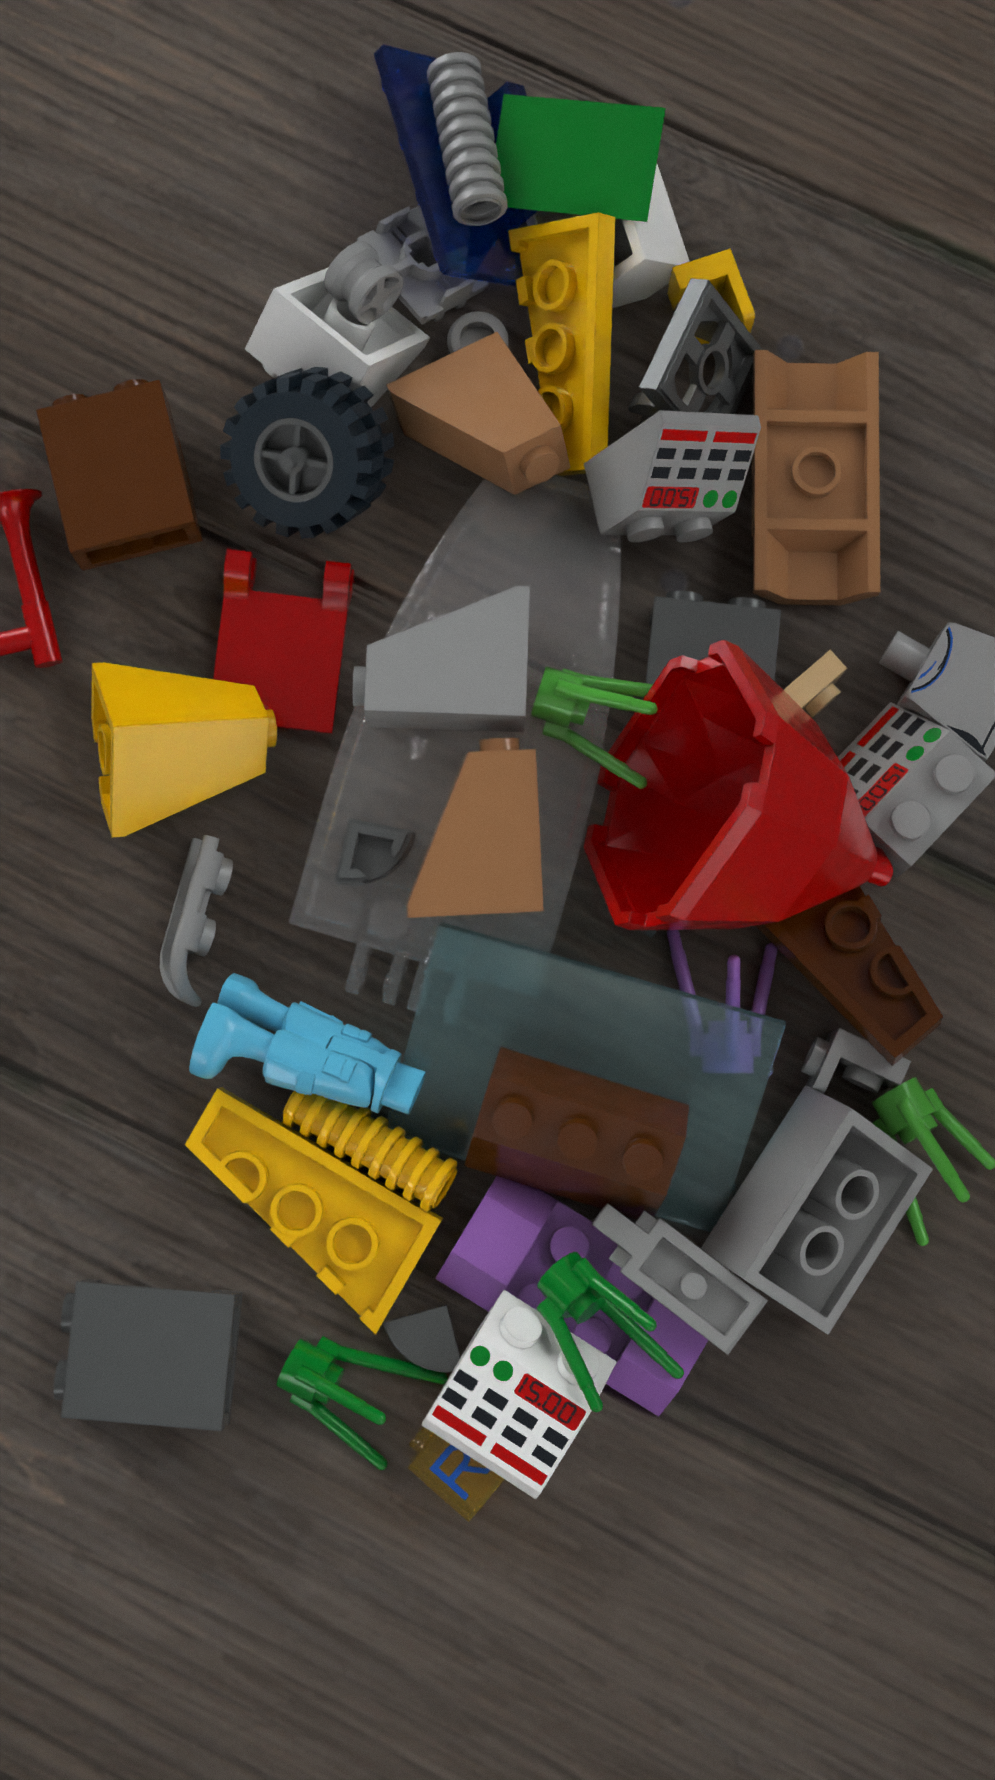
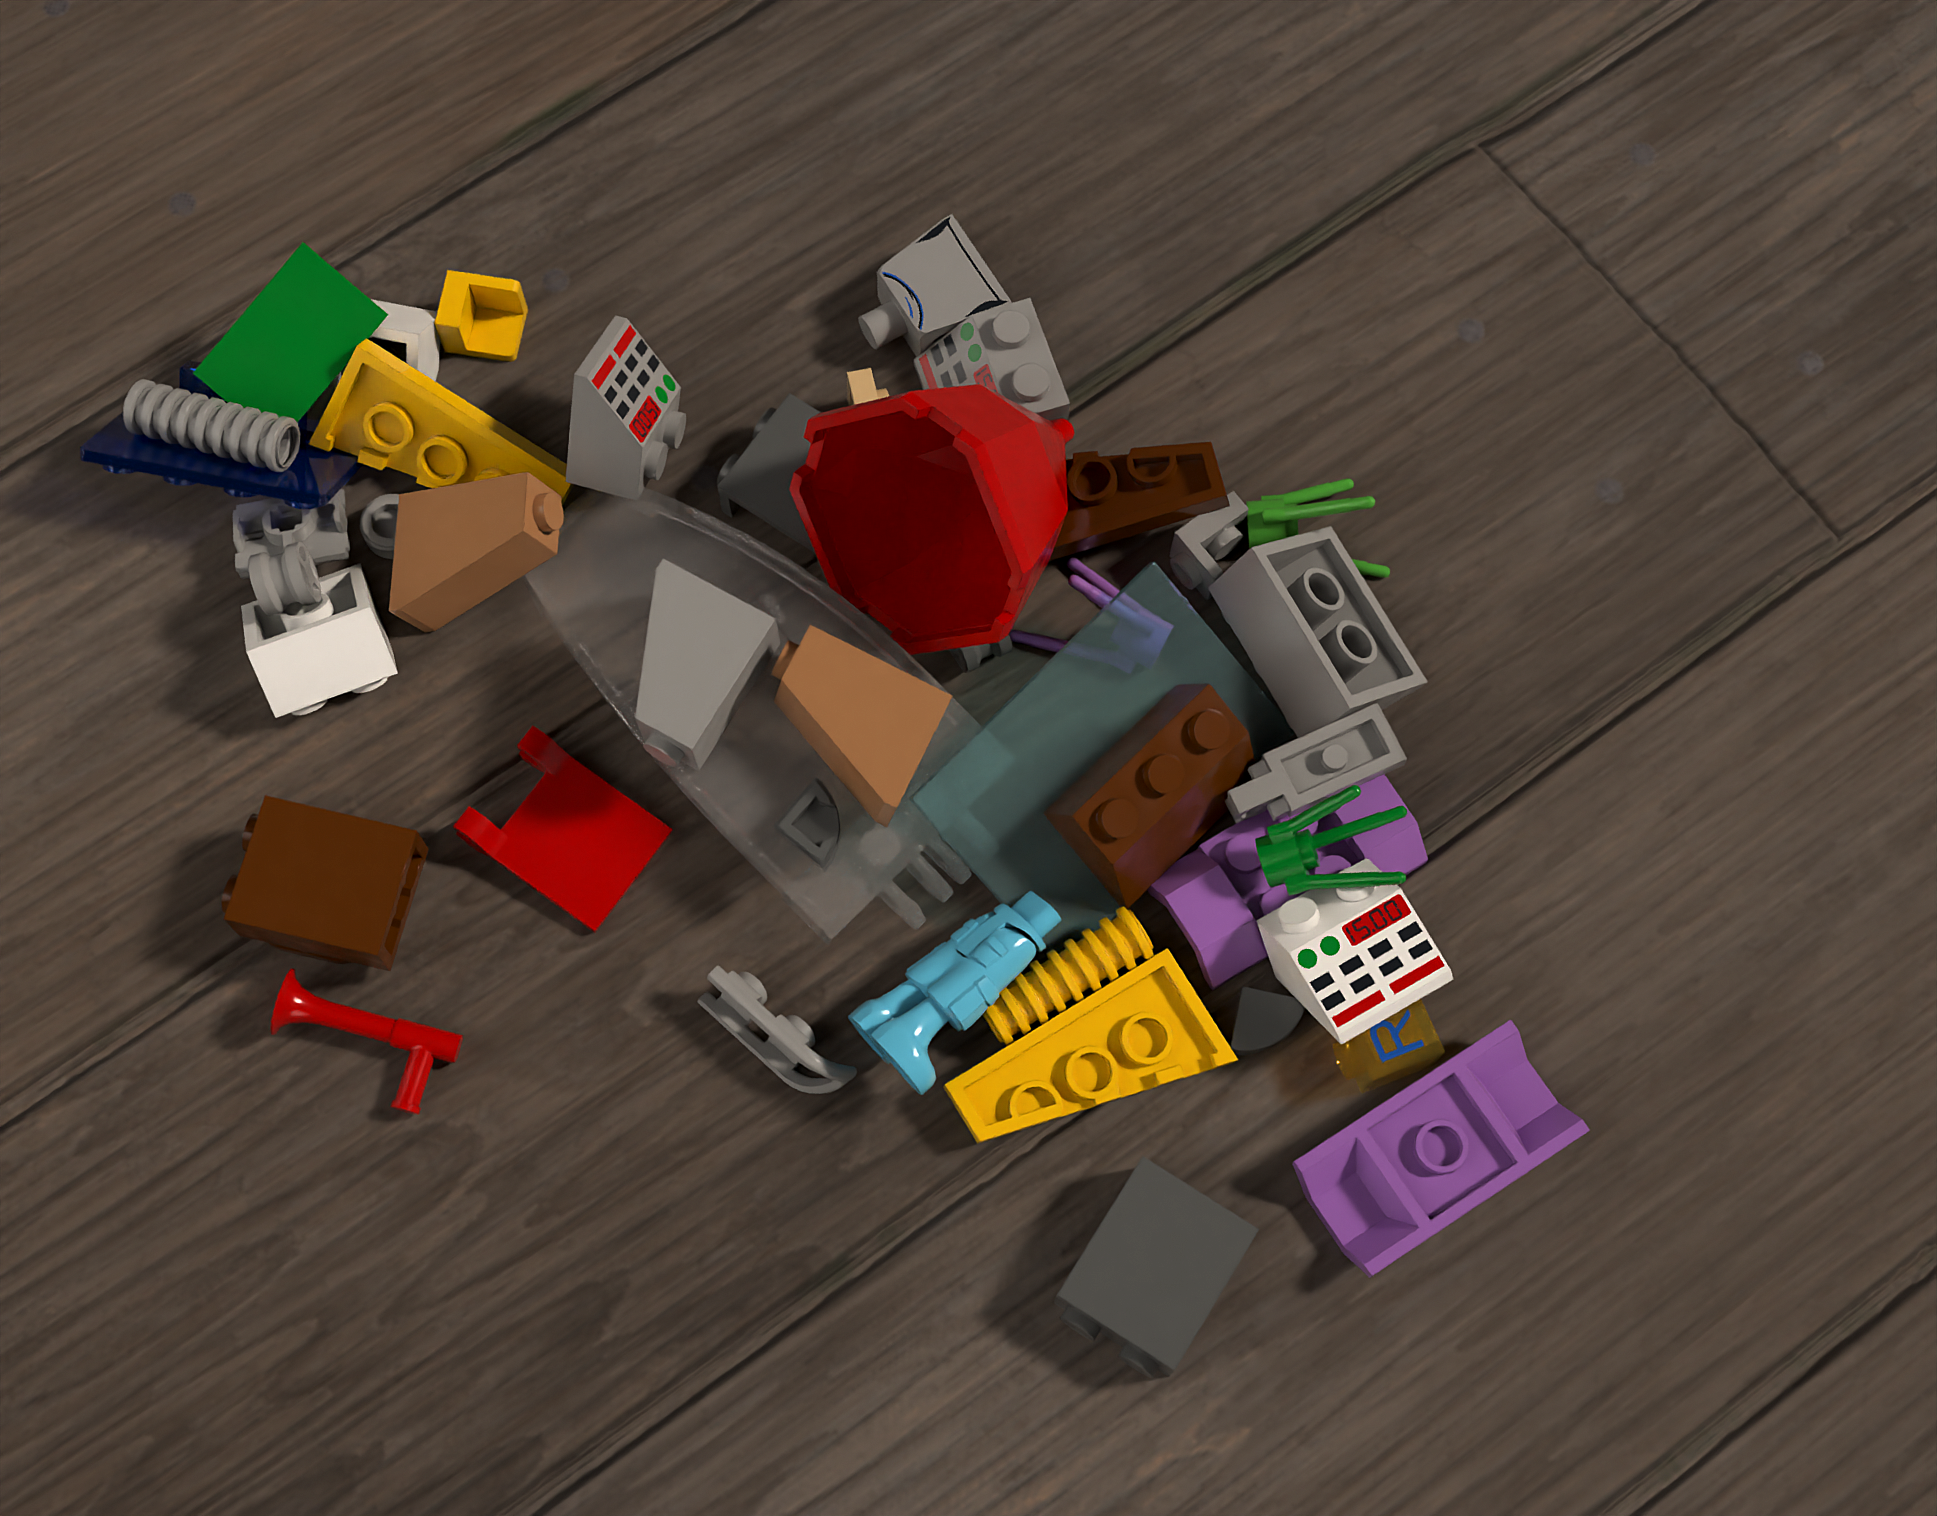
camera: 65 degrees left, 10 degrees down
(172, 741) = (600, 968): yellow slope -> none
(307, 452) = (411, 704): black wheel -> none
(314, 1377) = (1247, 1132): green plant -> none
(384, 1559) = (1435, 1151): none -> medium lavender piece
(566, 699) = (777, 586): bright green plant -> none
(708, 317) = (495, 327): dark grey piece -> none
(816, 480) = (692, 311): medium nougat piece -> none

